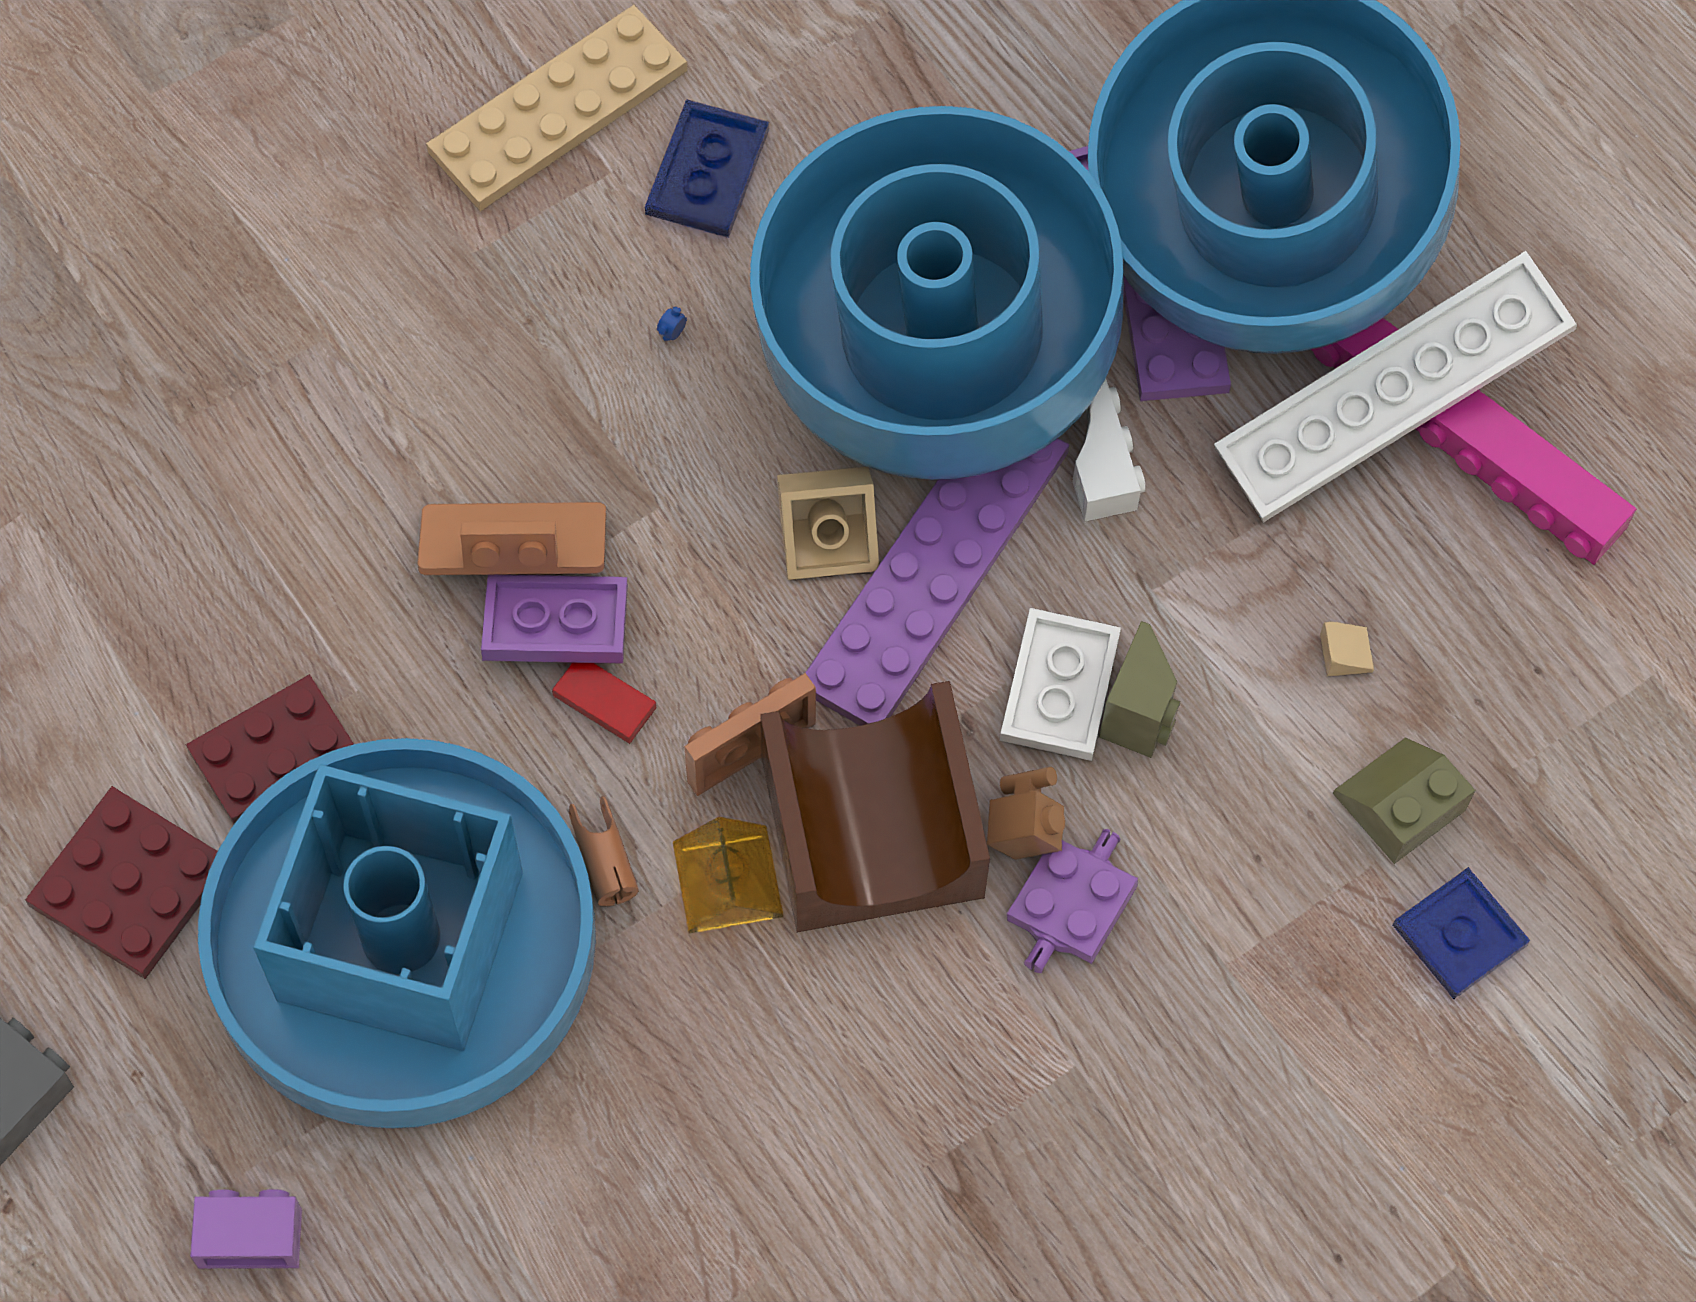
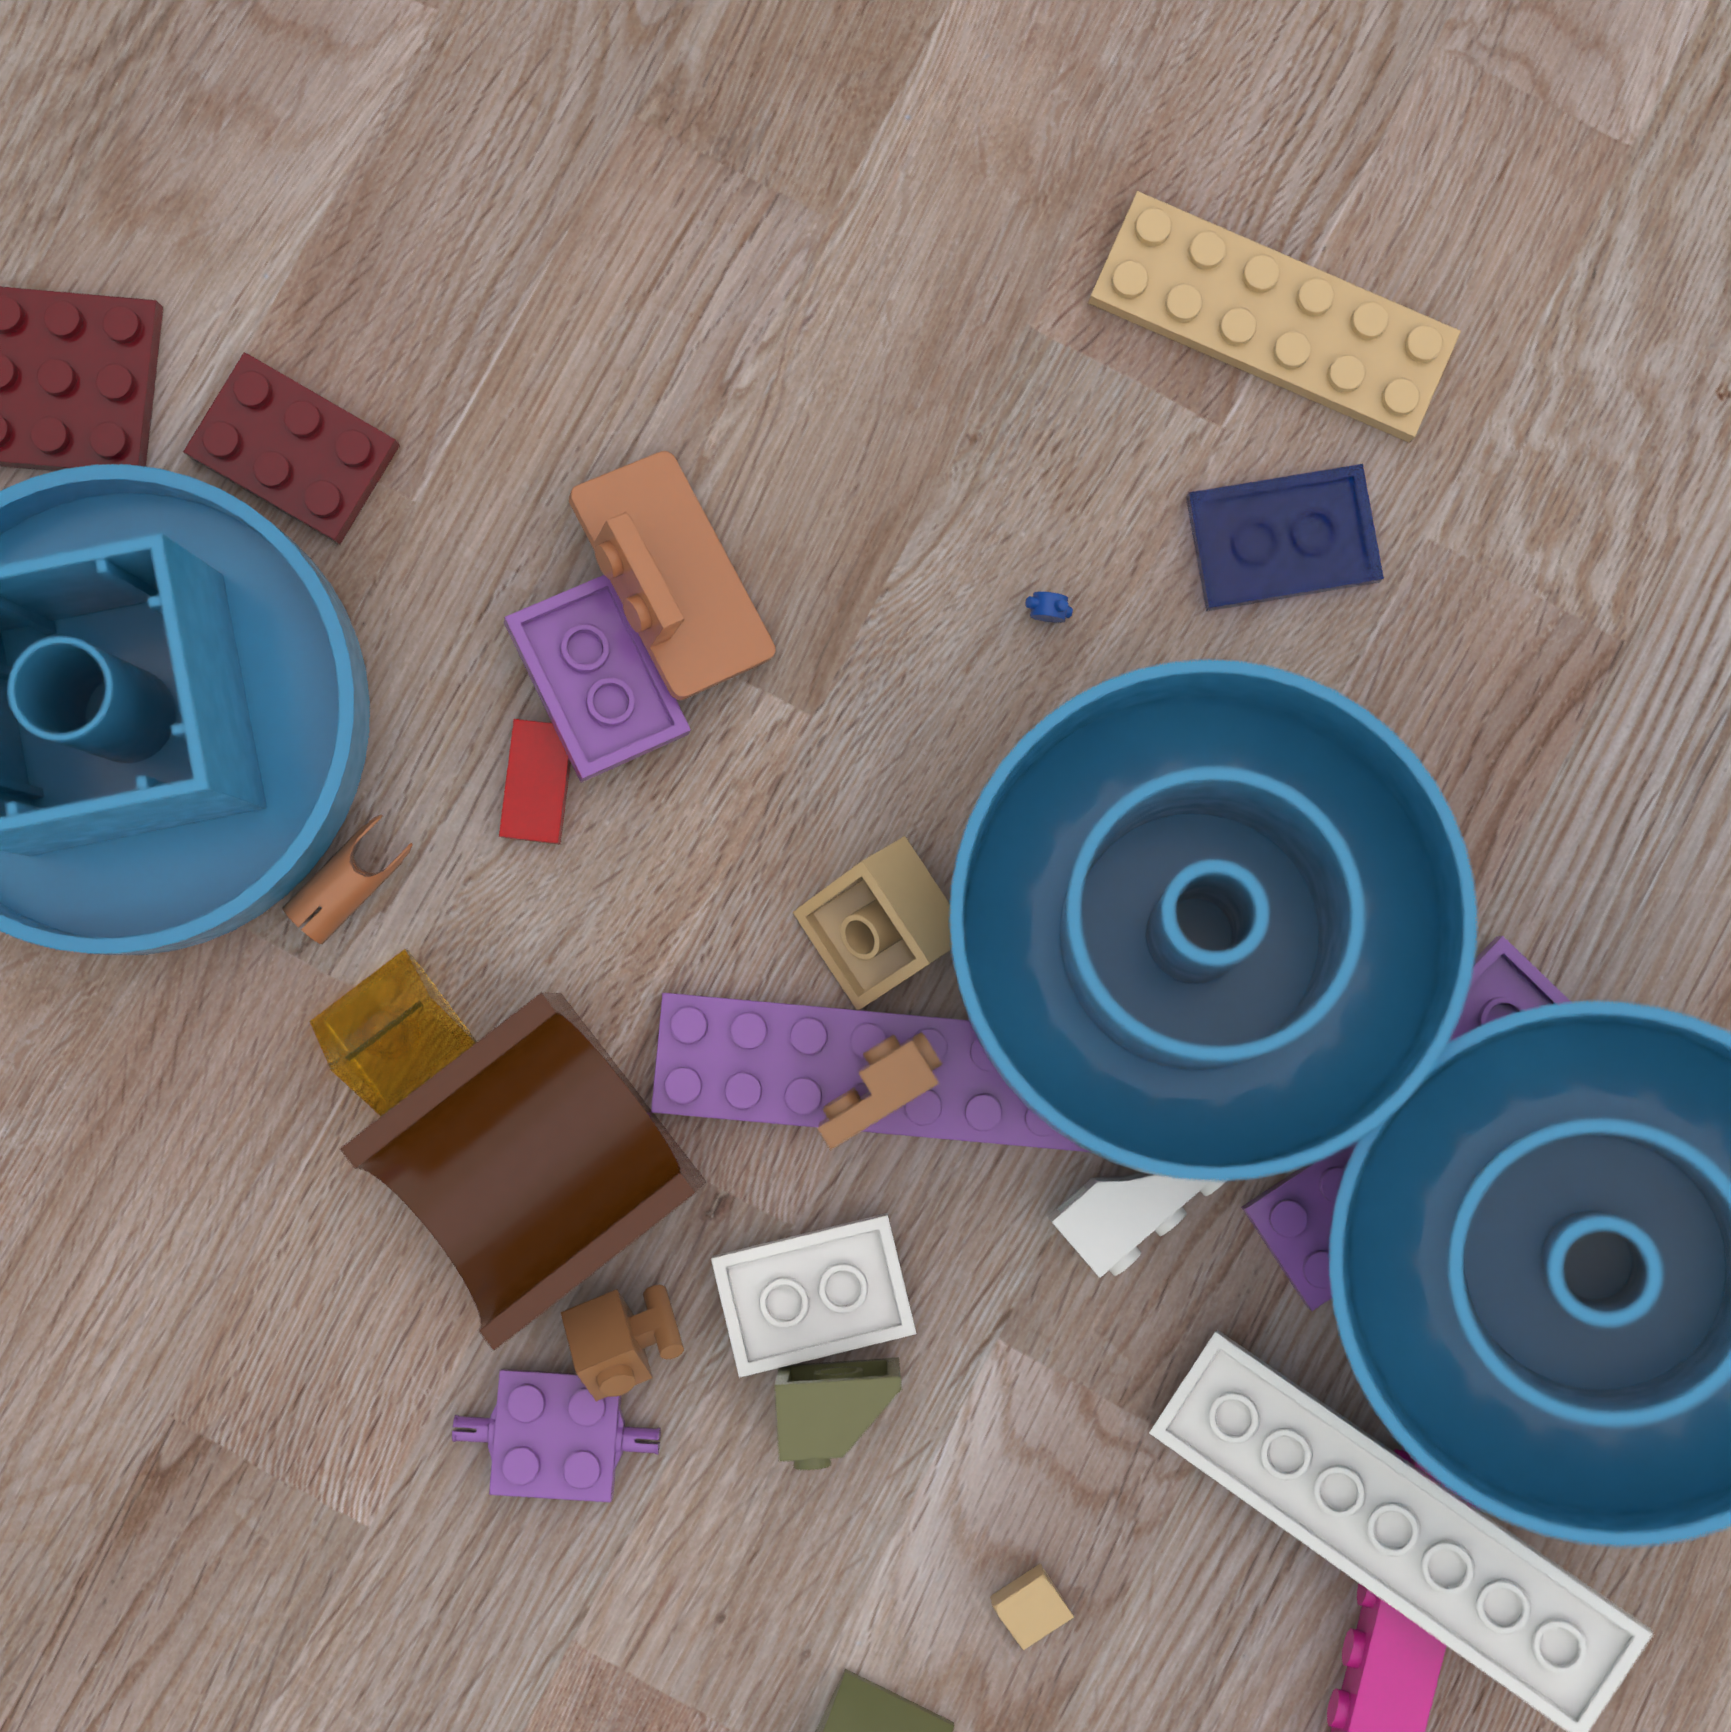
camera: 65 degrees right, 20 degrees up
(736, 743) = (553, 974): nougat plate -> none
(938, 549) = (893, 1077): none -> medium nougat plate

